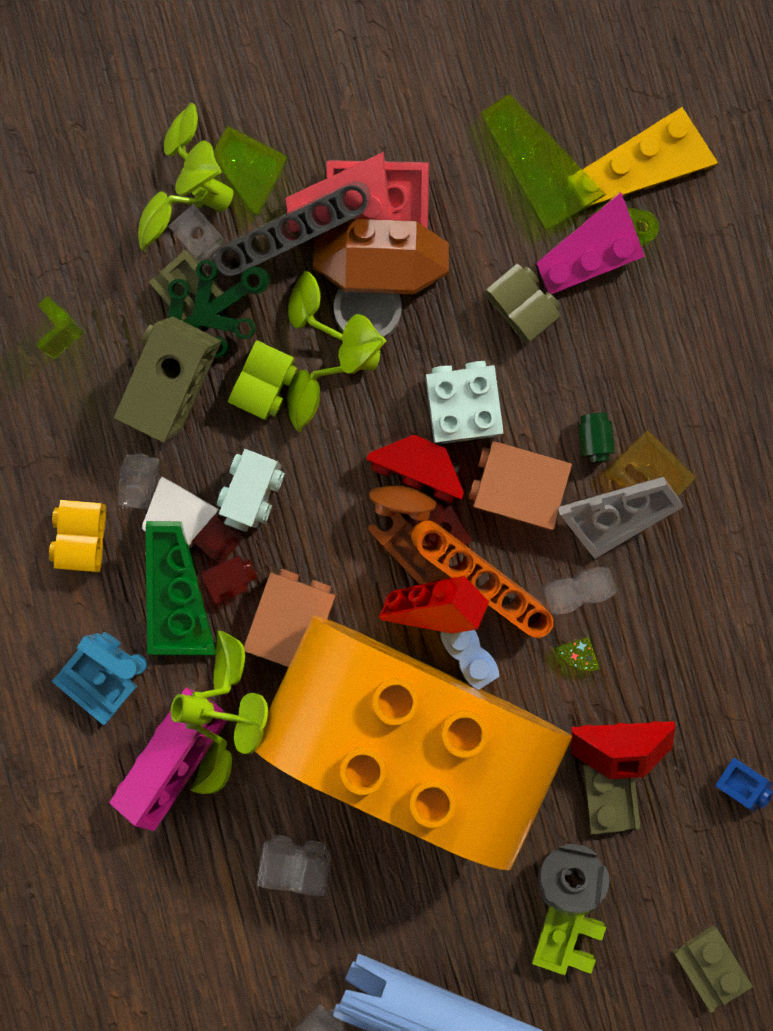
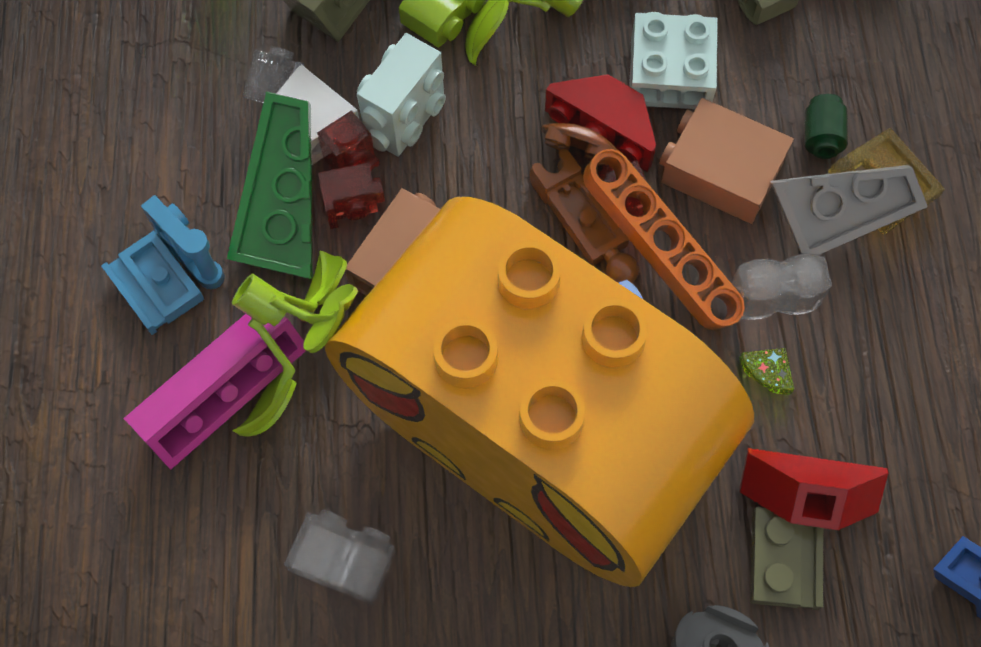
camera: 15 degrees right, 20 degrees down
(78, 536) = (187, 117): yellow brick -> none
(441, 606) = (621, 247): red slope -> none

